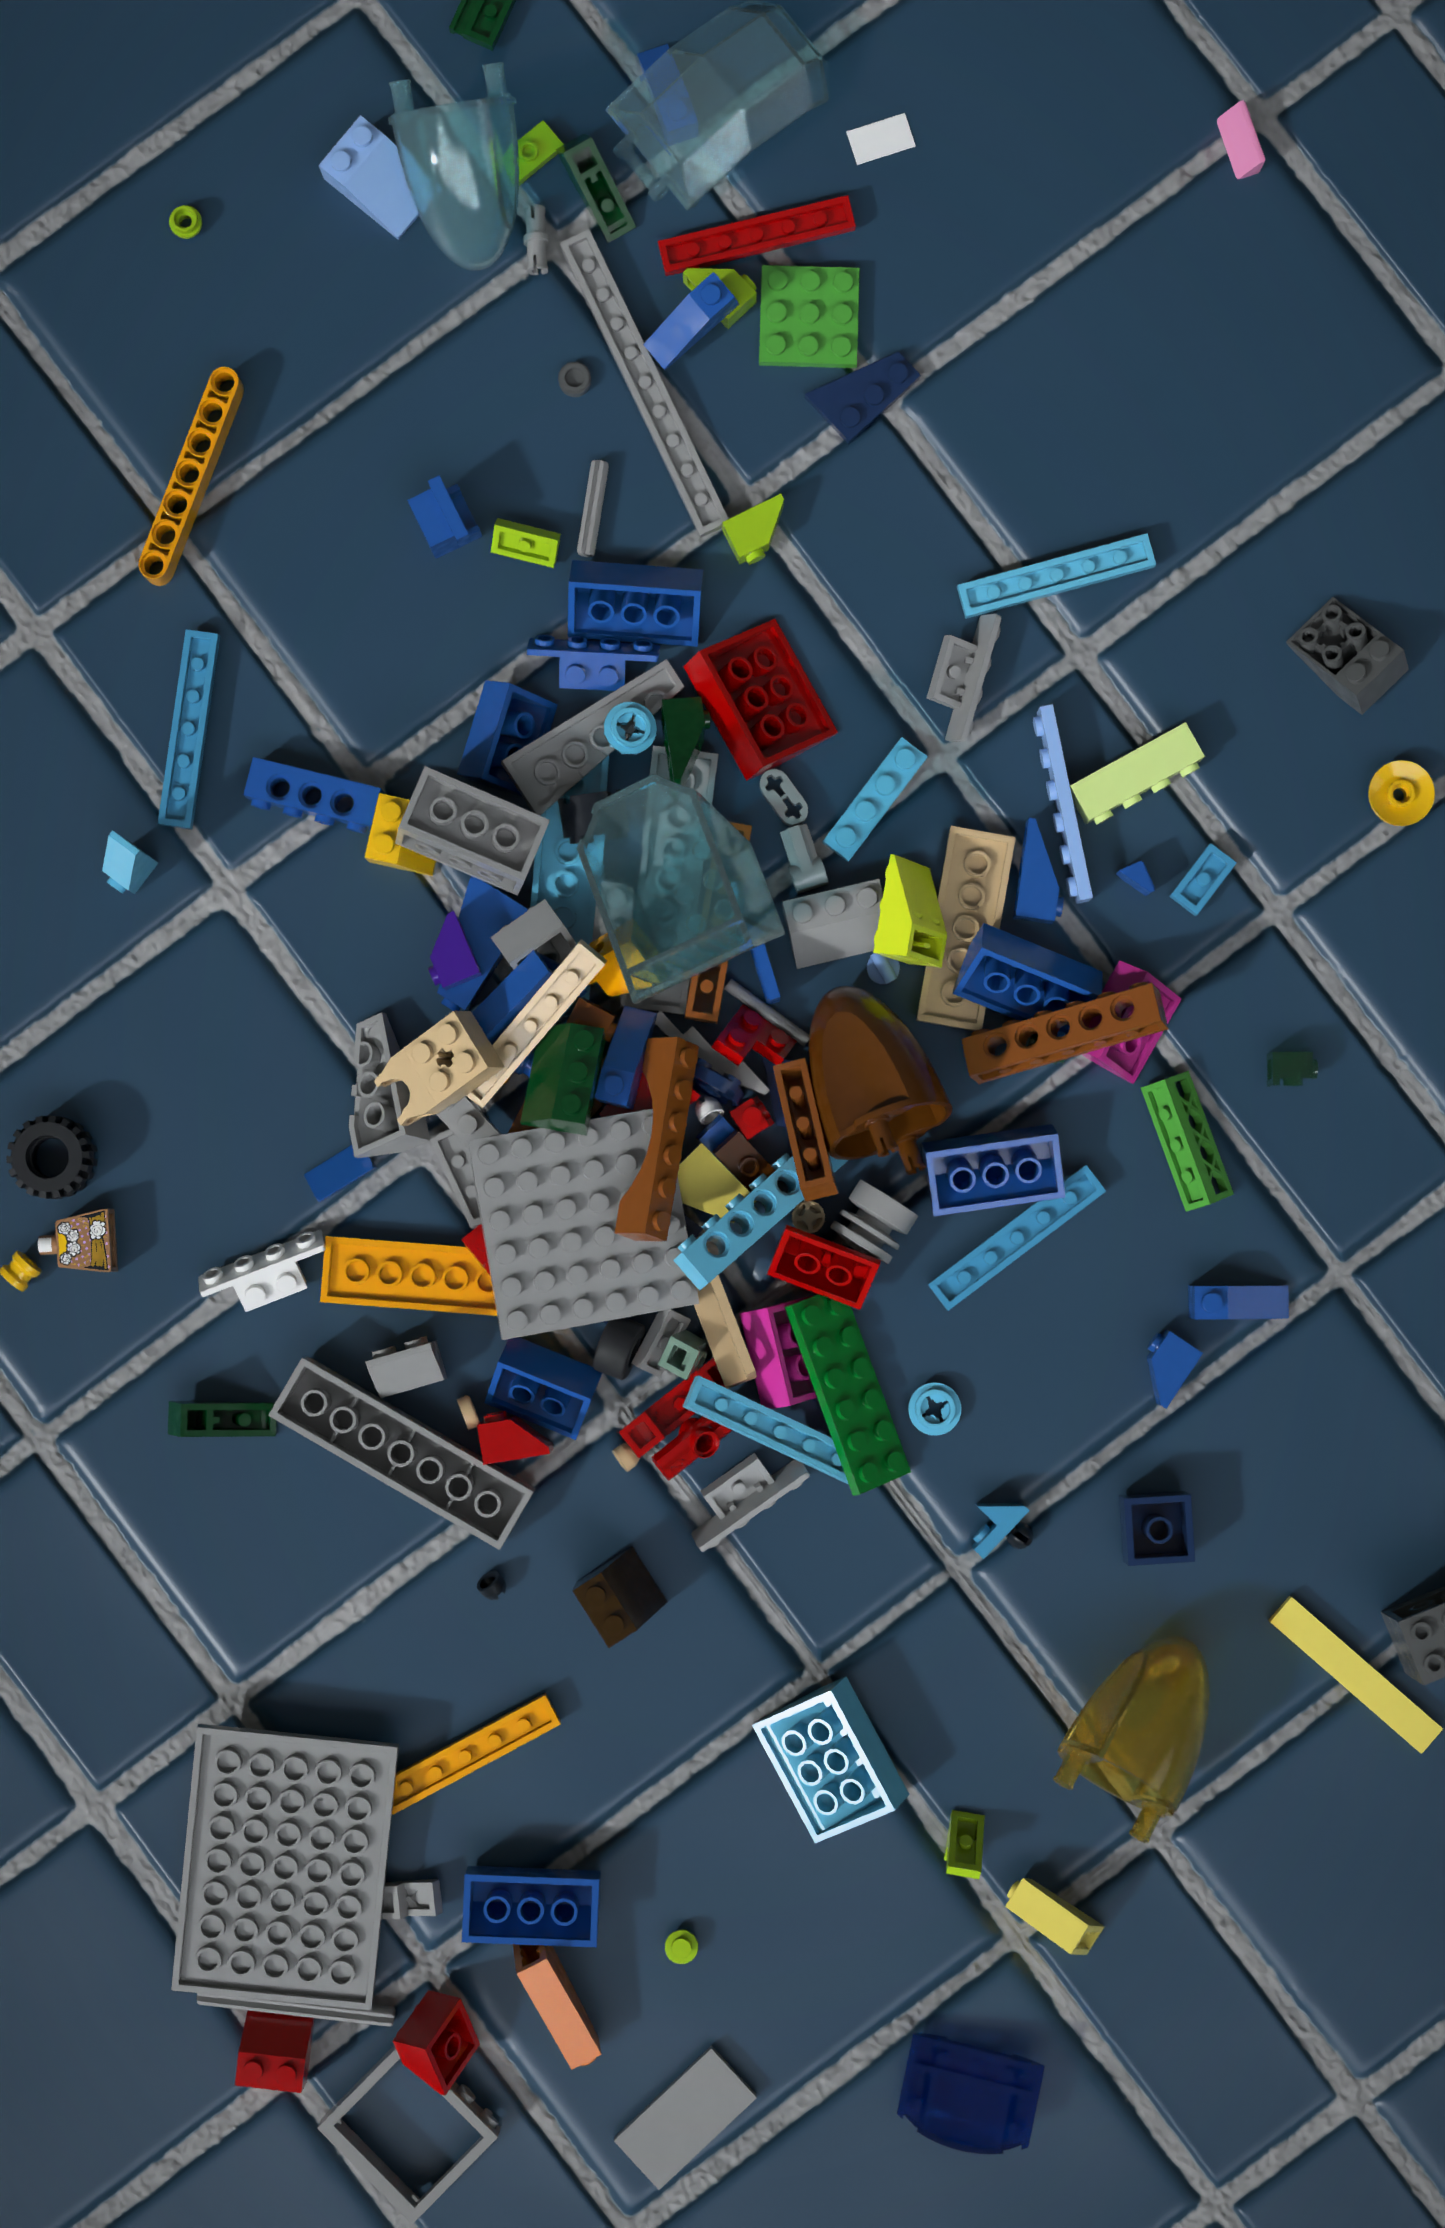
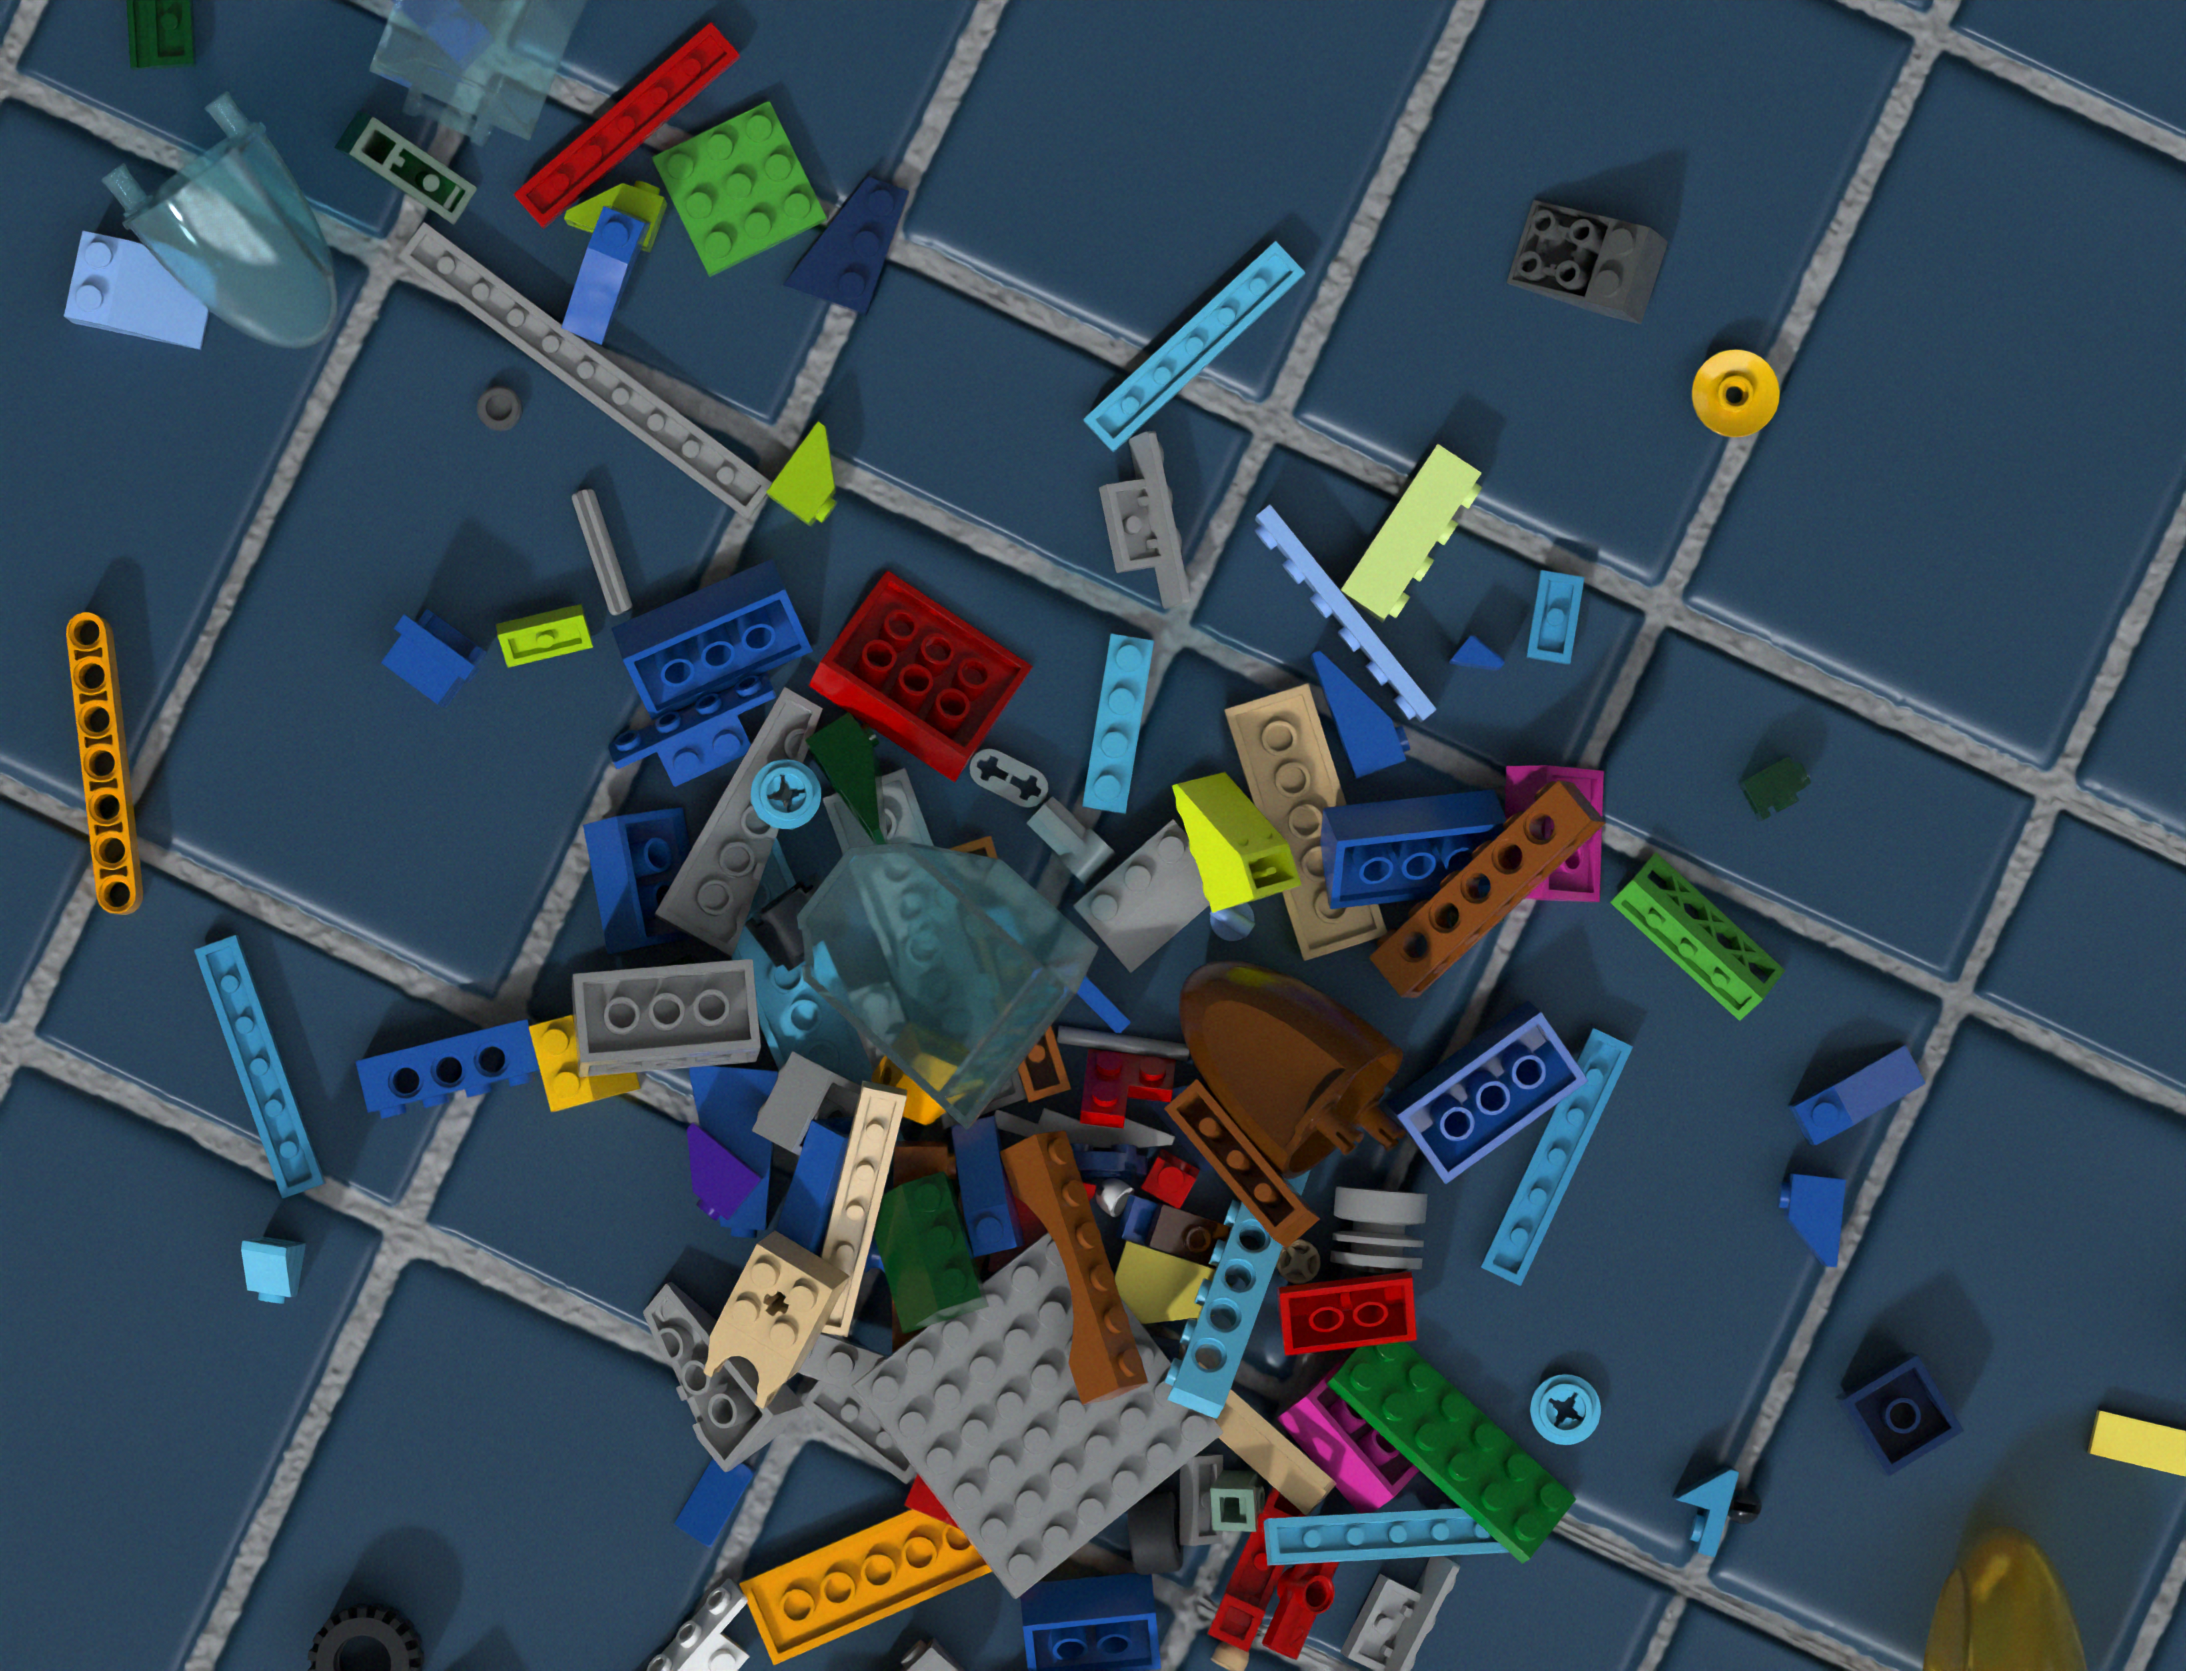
camera: 30 degrees left, 0 degrees up
(536, 150) = (310, 157): lime plate -> none
(536, 239) = (367, 266): light grey pin -> none

